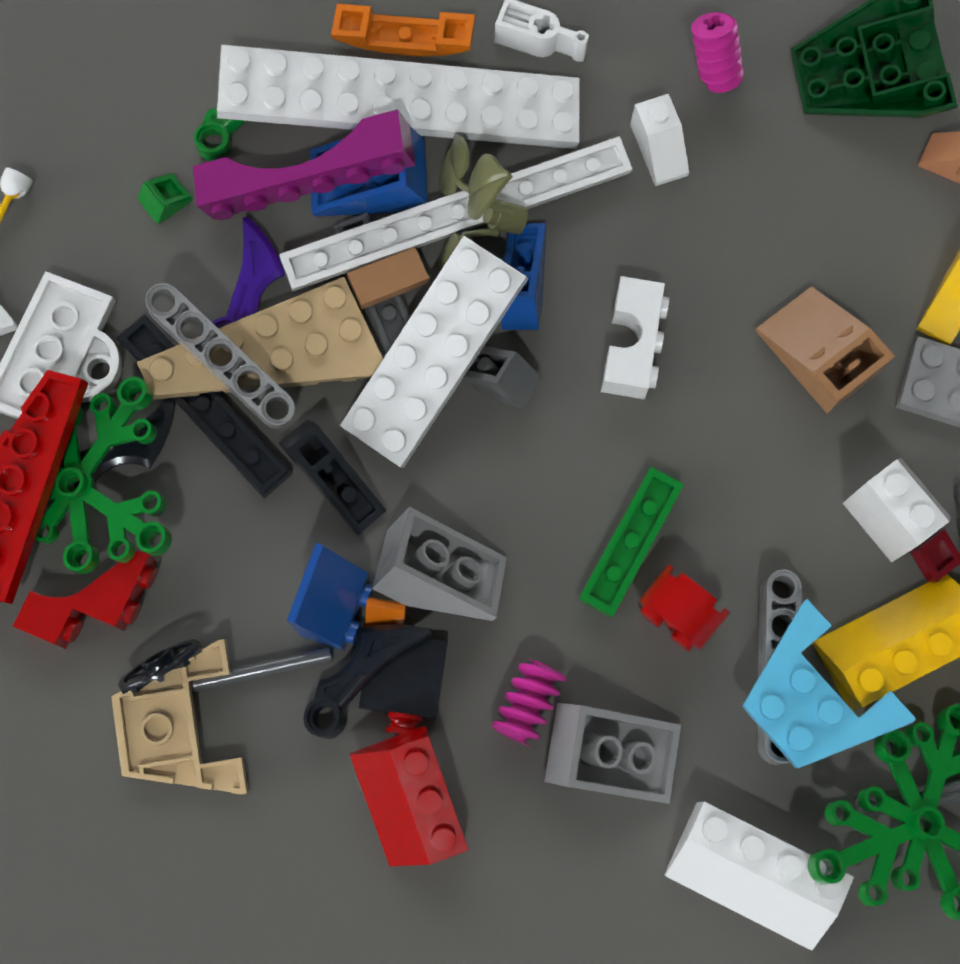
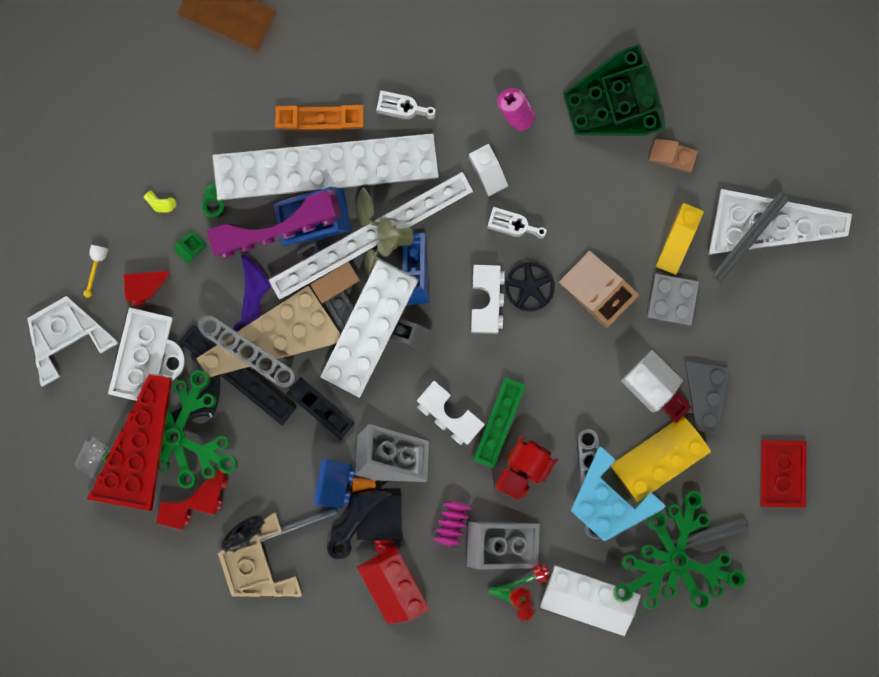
camera: 10 degrees left, 10 degrees up
(77, 242) = (143, 286): none -> red slope
(129, 126) = (160, 205): none -> neon yellow arm
(568, 540) = (433, 402): none -> white arch
(636, 849) = (521, 597): none -> red plant
(642, 647) = (512, 484): none -> red slope
(676, 224) = (507, 228): none -> white piece
(707, 329) = (530, 286): none -> black wheel

